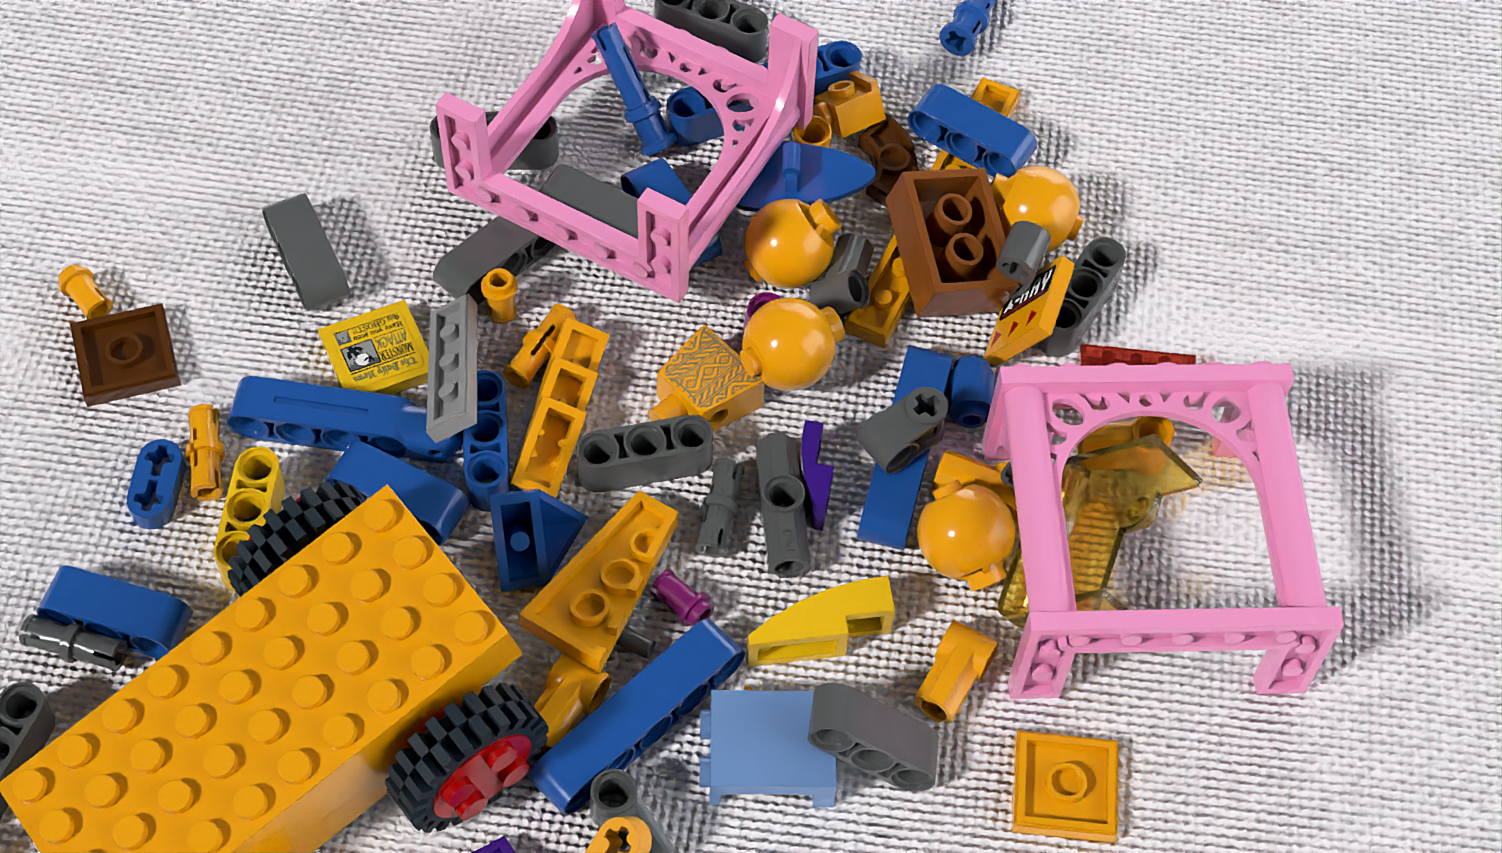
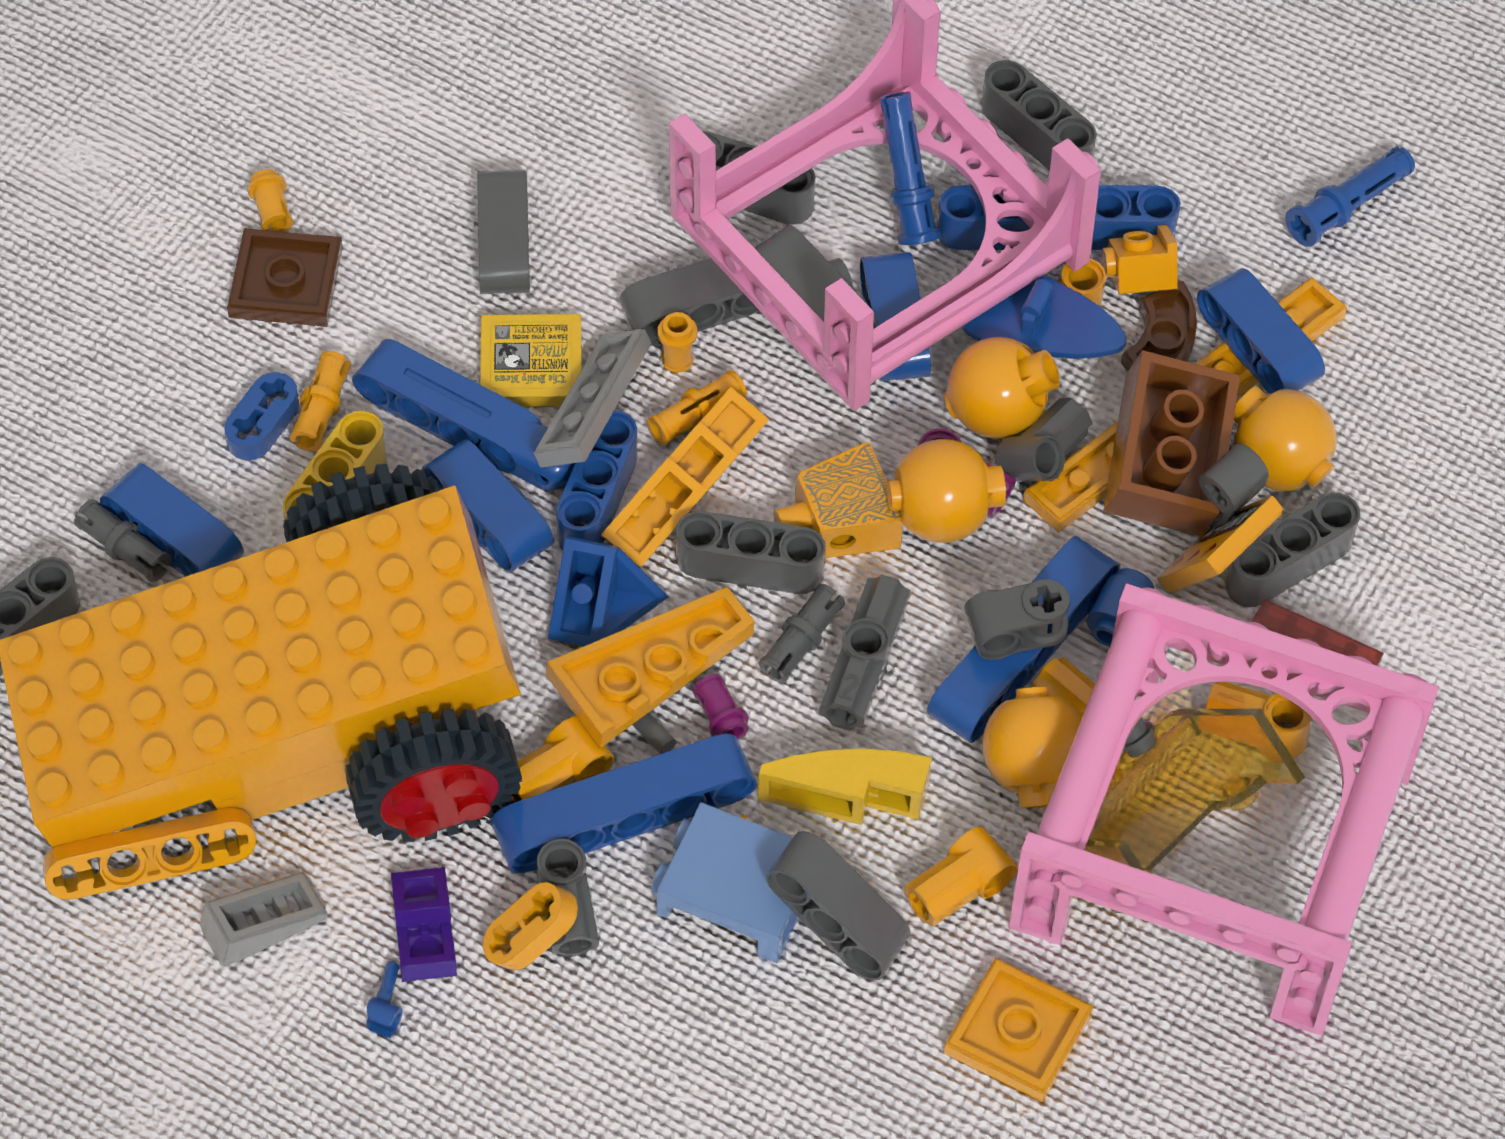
camera: 25 degrees right, 0 degrees up
(814, 476) = (912, 634): dark purple slope -> none

